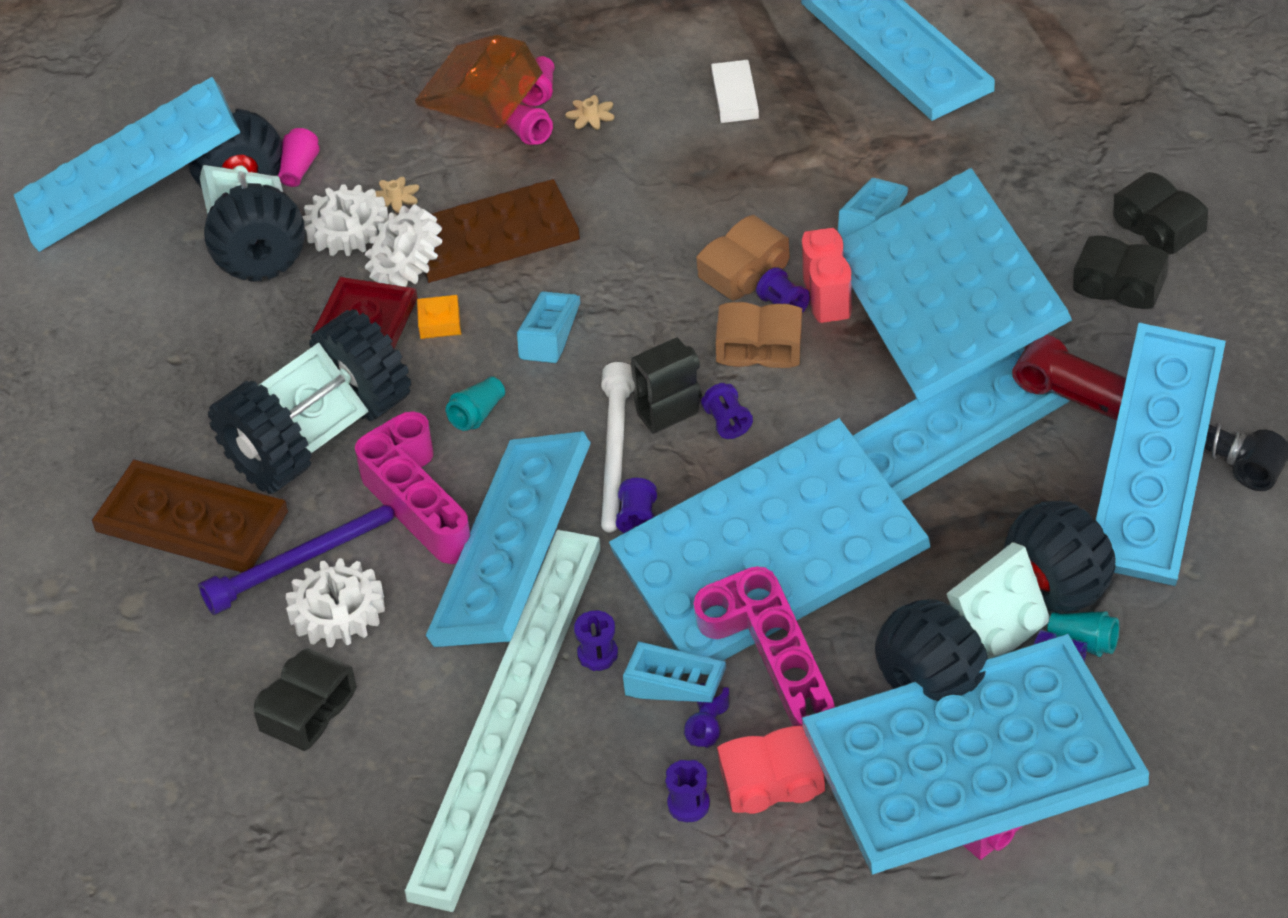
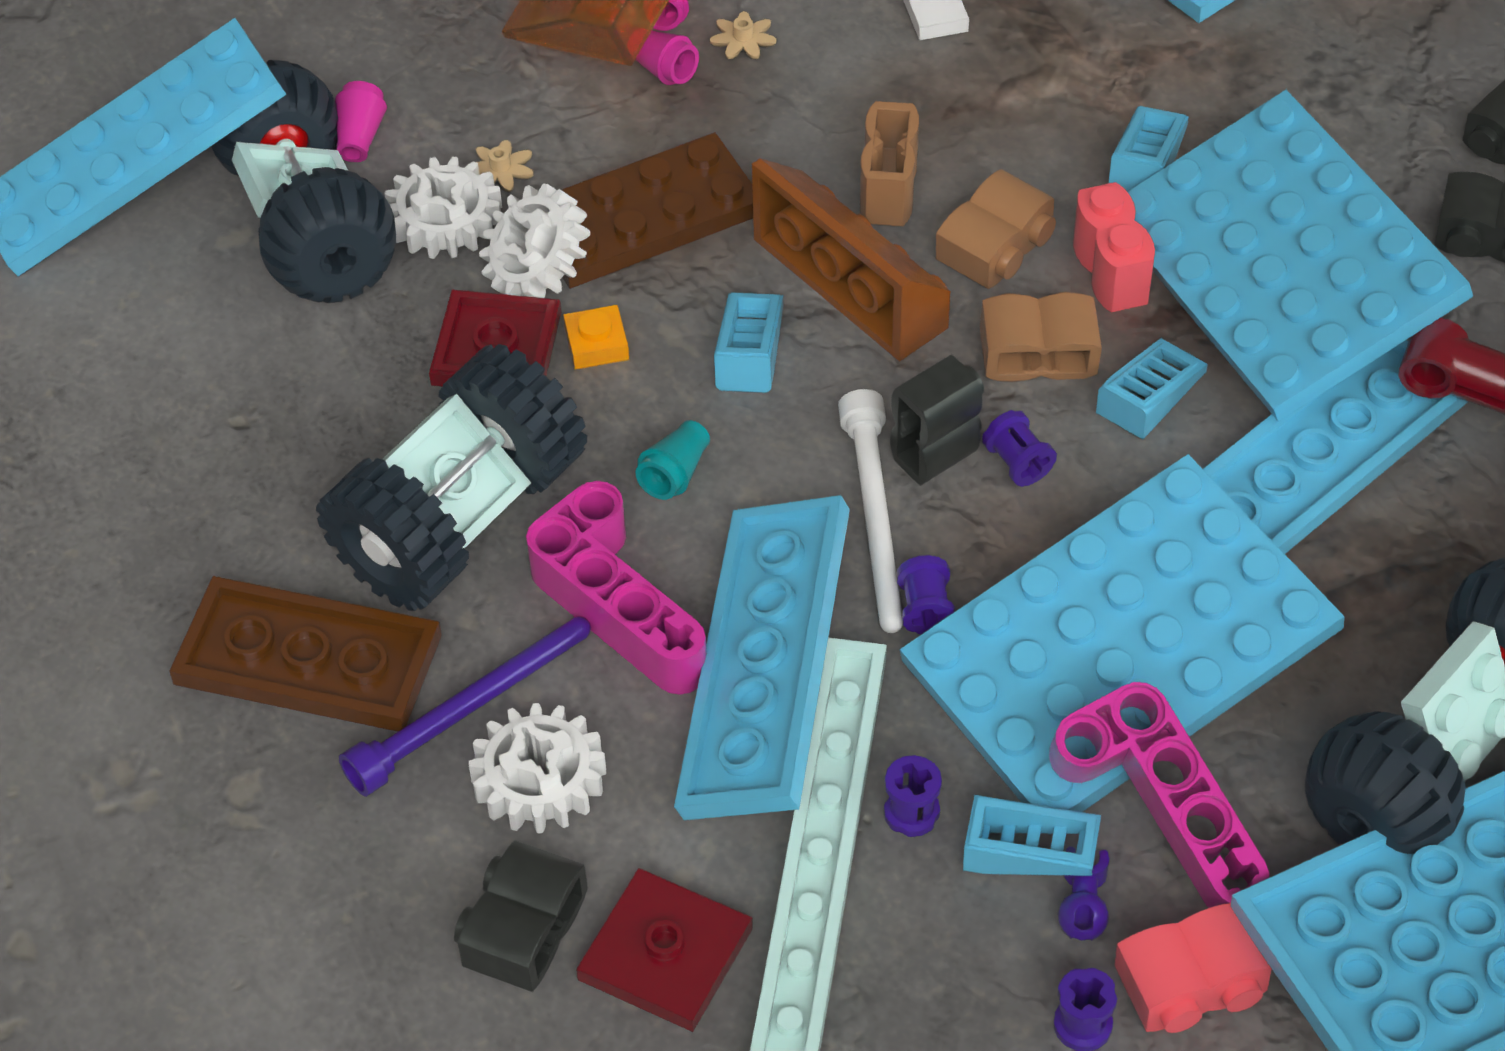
camera: 10 degrees left, 5 degrees up
(402, 730) = (665, 949): none -> dark red plate
(628, 271) = (847, 260): none -> dark orange slope
(672, 206) = (889, 163): none -> medium nougat brick
(781, 290) = (1055, 272): dark purple bush -> none
(822, 395) = (1138, 415): none -> medium azure slope

